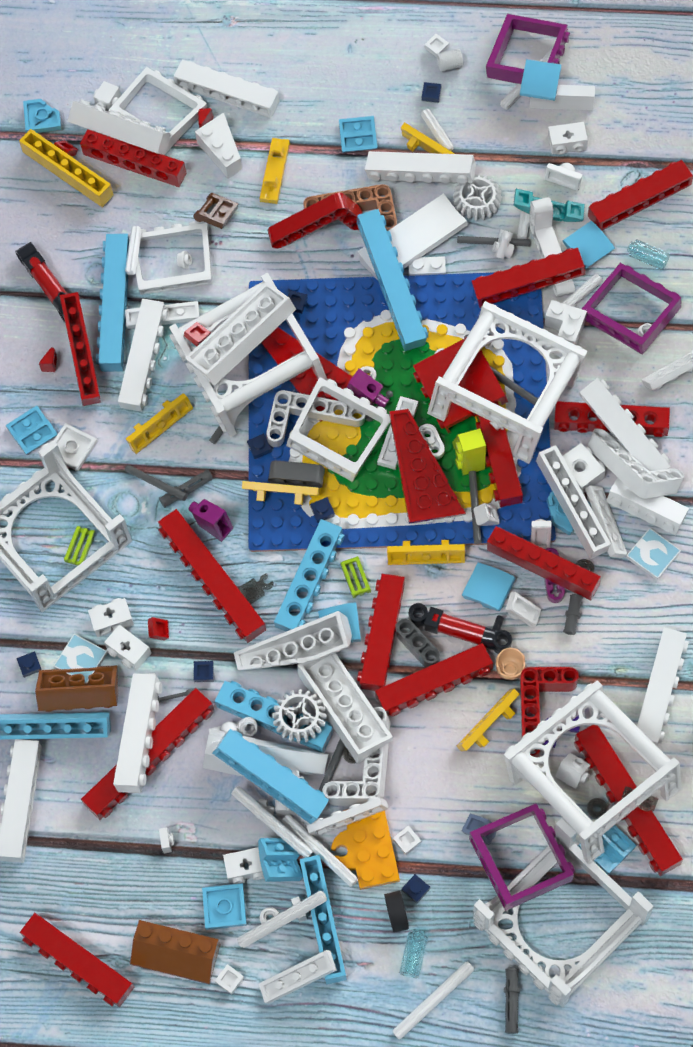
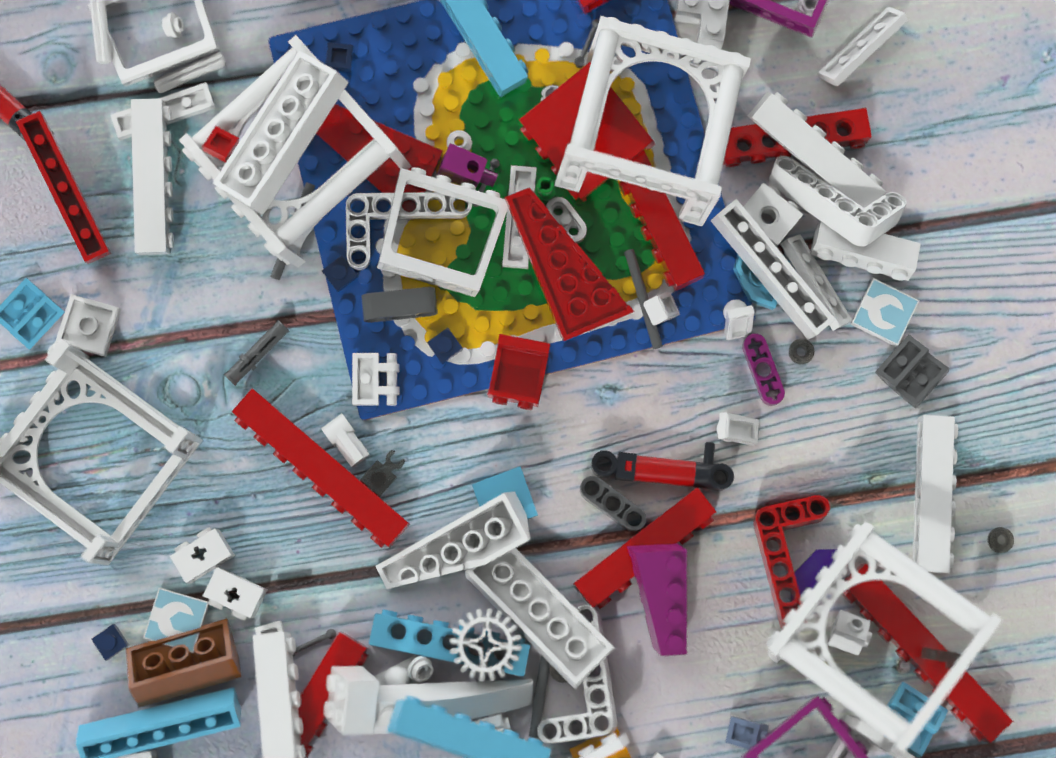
camera: 20 degrees left, 15 degrees up
(49, 361) = (26, 210): red slope -> none
(78, 530) = (125, 463): lime tile -> none
(114, 302) = (93, 108): medium azure brick -> none
(155, 482) = (215, 354): dark grey bar -> none
(158, 628) = (268, 557): red plate -> none
(159, 423) = (197, 270): yellow hinge -> none
(187, 293) = (189, 72): none -> white axle
(192, 731) = (352, 700): none -> white brick
(203, 671) = (343, 602): dark blue plate -> none
(211, 519) = (300, 390): magenta torso -> none
(233, 556) = (342, 436): none -> white piece
(259, 521) = (366, 379): none -> white plate
(299, 491) = (406, 327): yellow hinge -> none
(325, 532) = (455, 378): medium azure brick -> none
(360, 591) = (497, 408): lime tile -> none
(371, 537) = (518, 371): none -> red panel
(382, 632) = (563, 498): red brick -> none
(420, 414) = (545, 189): none -> green pin
(426, 554) = (594, 378): yellow hinge -> none
(438, 710) = (663, 592): none -> magenta wedge
(470, 451) = (622, 225): neon yellow wedge -> none
(475, 735) = (725, 587): yellow hinge -> none
(488, 586) = (685, 404): medium azure slope -> none
(510, 663) = (738, 506): light nougat hair -> none
(513, 386) = (664, 122): dark grey bar -> none
(543, 563) = (752, 360): red brick -> none
(572, 614) = (801, 418): dark grey pin -> none
(596, 802) = (896, 671): clear smoke plate -> none
(664, 599) = (912, 371): none -> dark grey slope

